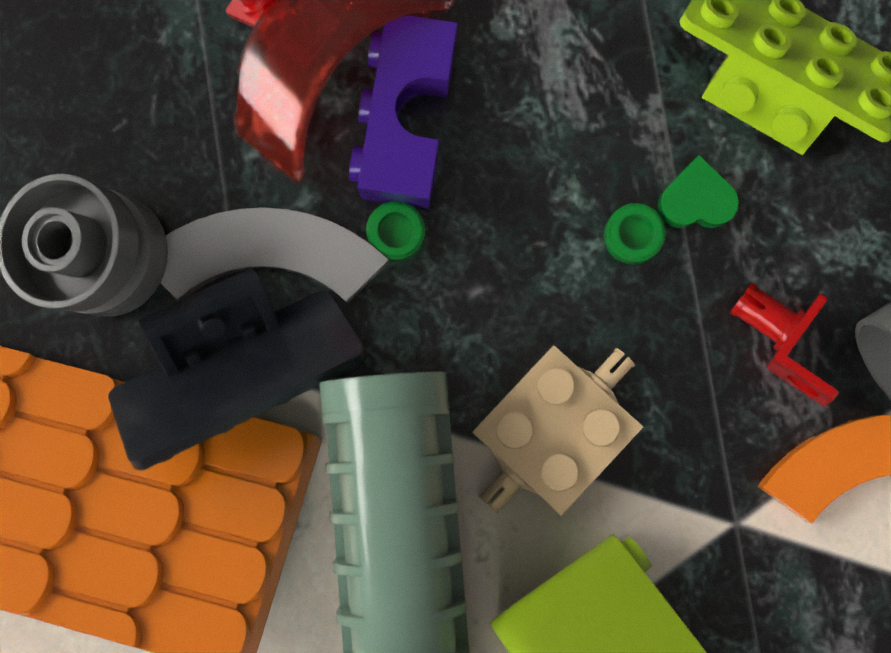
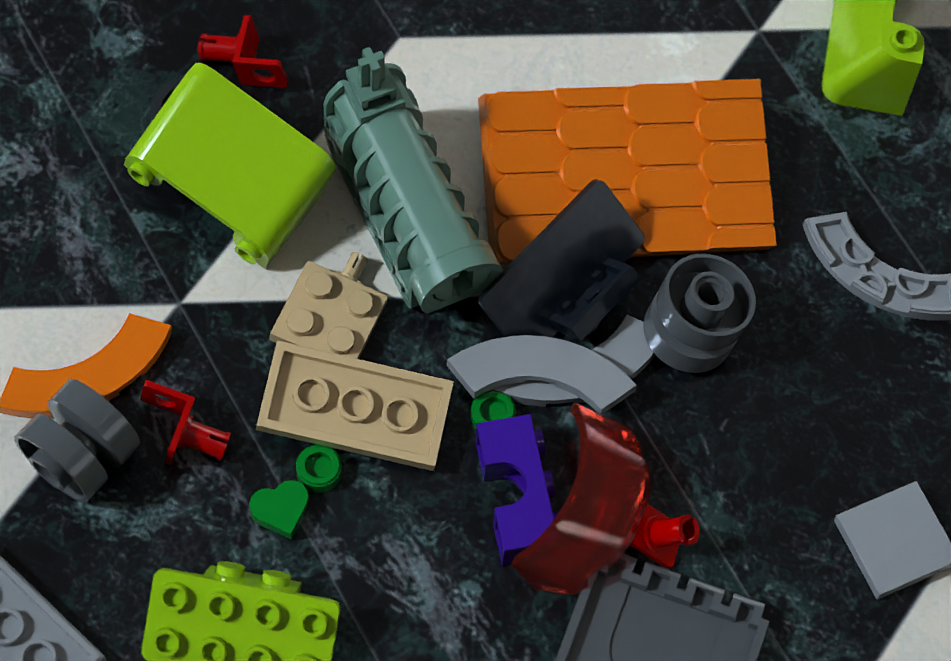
camera: 160 degrees right, 20 degrees down
(310, 265) = (542, 359): none -> light grey tile
(570, 287) = (355, 405): none -> tan plate

